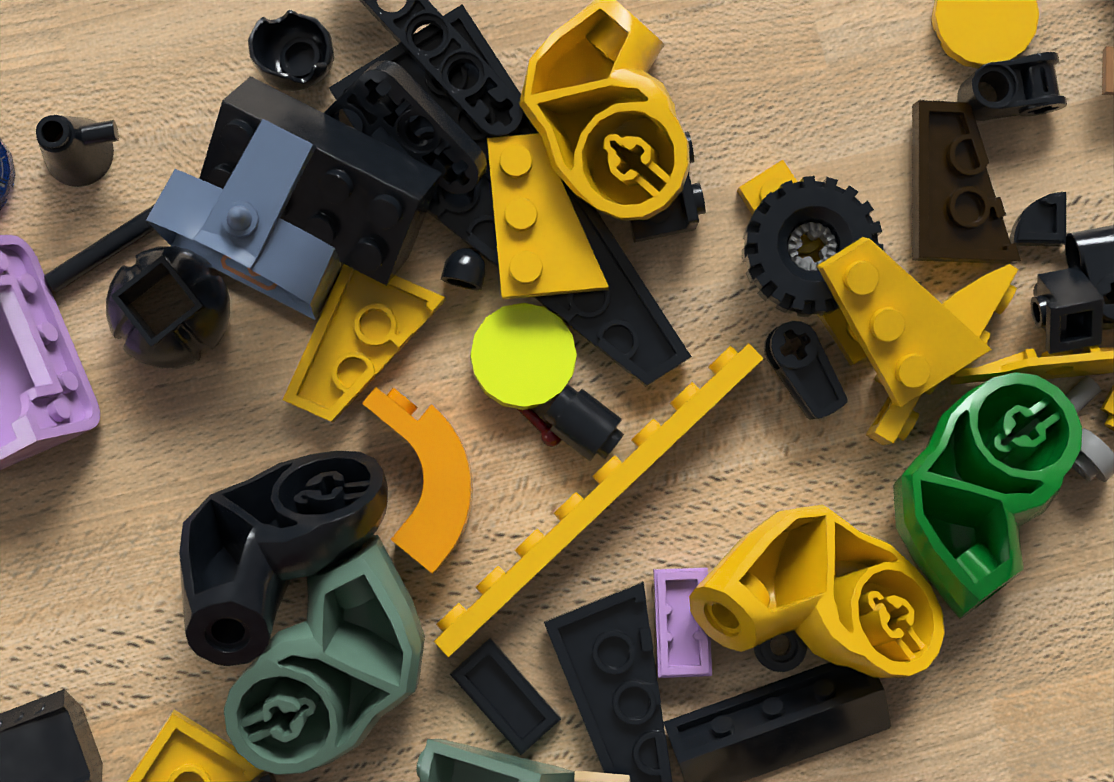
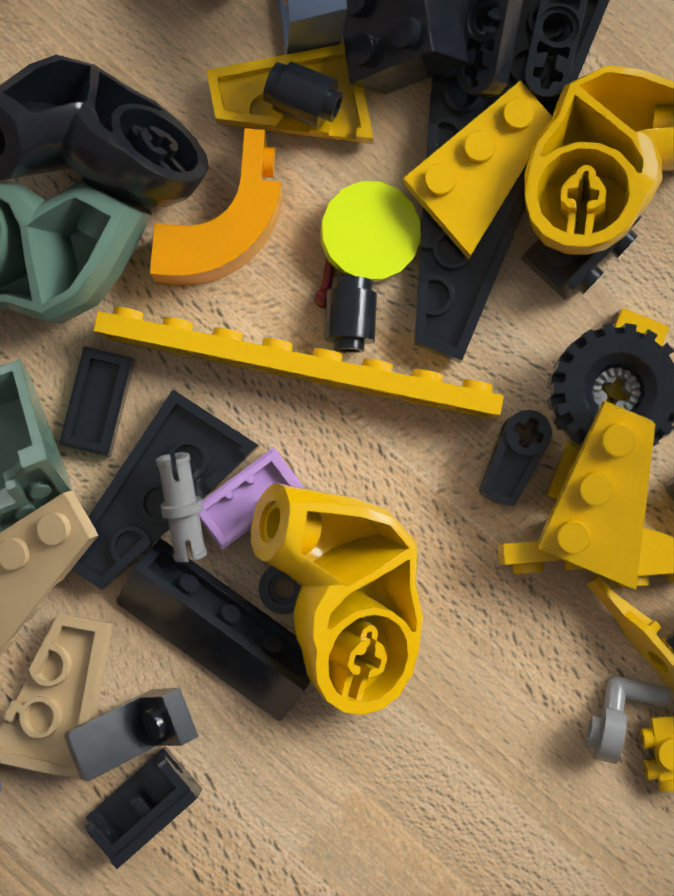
camera: 60 degrees right, 0 degrees up
(368, 332) = (302, 94): none -> black brick
(464, 269) = (405, 140): black hinge -> none
(654, 685) = (181, 507): none -> light grey pin
(981, 477) = (524, 653): green piece -> none

